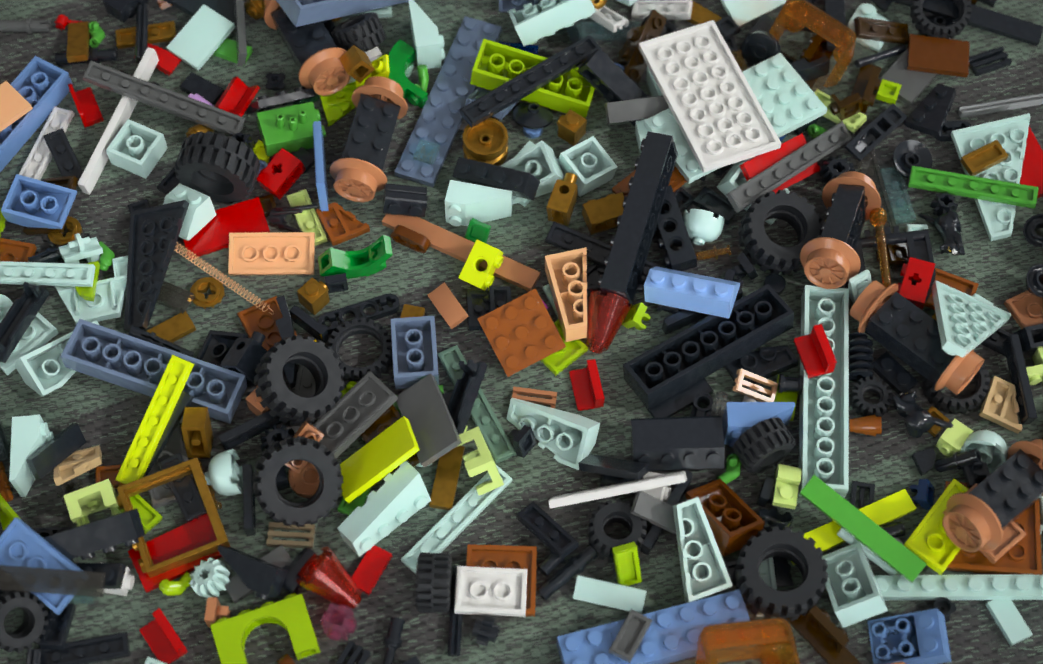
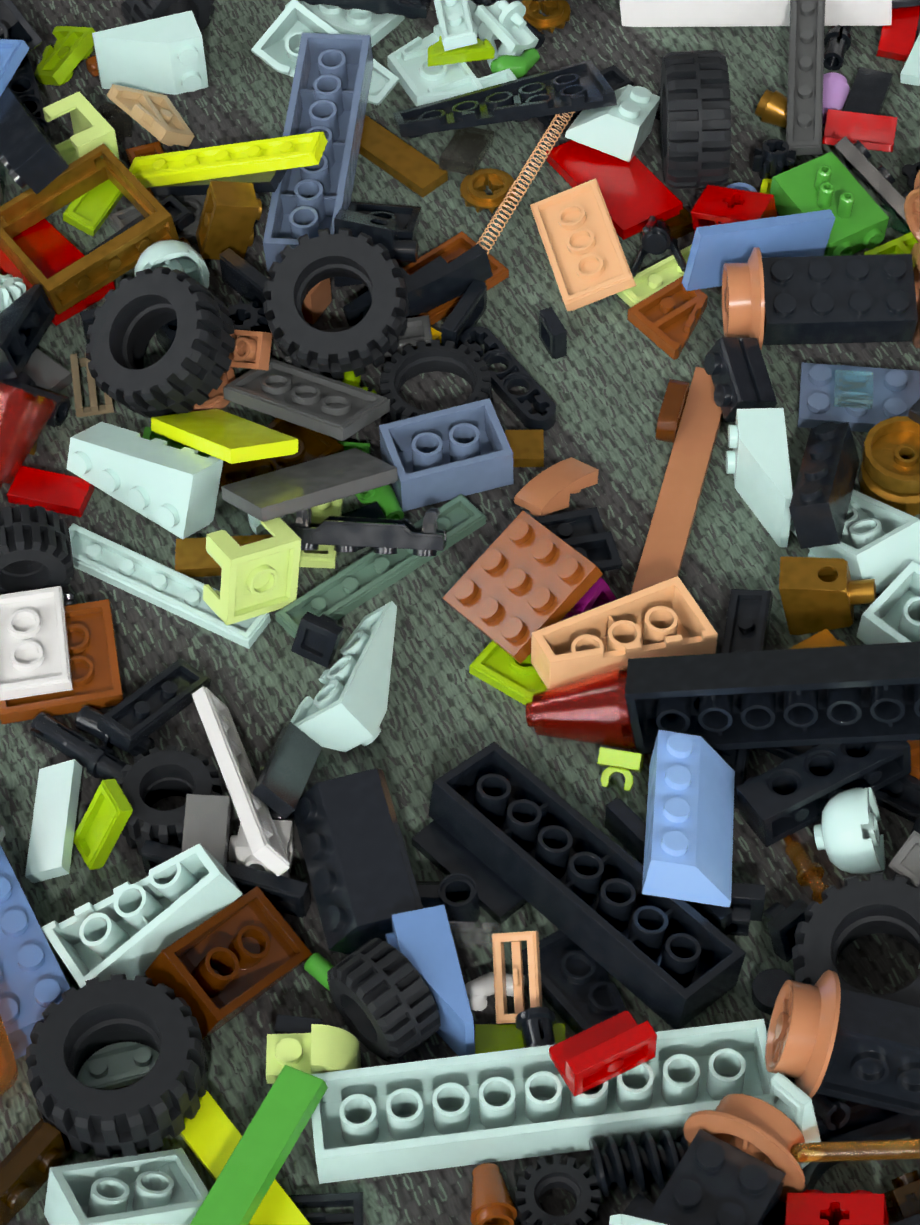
camera: 80 degrees right, 10 degrees down
(56, 451) = (163, 82): black tile -> none
(136, 148) = (717, 28): light aqua brick -> none
(152, 338) = (376, 142): black pin -> none
(313, 295) = (516, 308): pearl gold brick -> none
(356, 263) = (595, 342): green arch -> none
(477, 231) = (718, 497): green tile -> none
(479, 253) = (645, 507): neon yellow brick -> none
(537, 393) = (405, 621): nougat tile -> none
(587, 387) = (456, 720): red panel -> none
(774, 518) = (237, 1053): black hair -> none

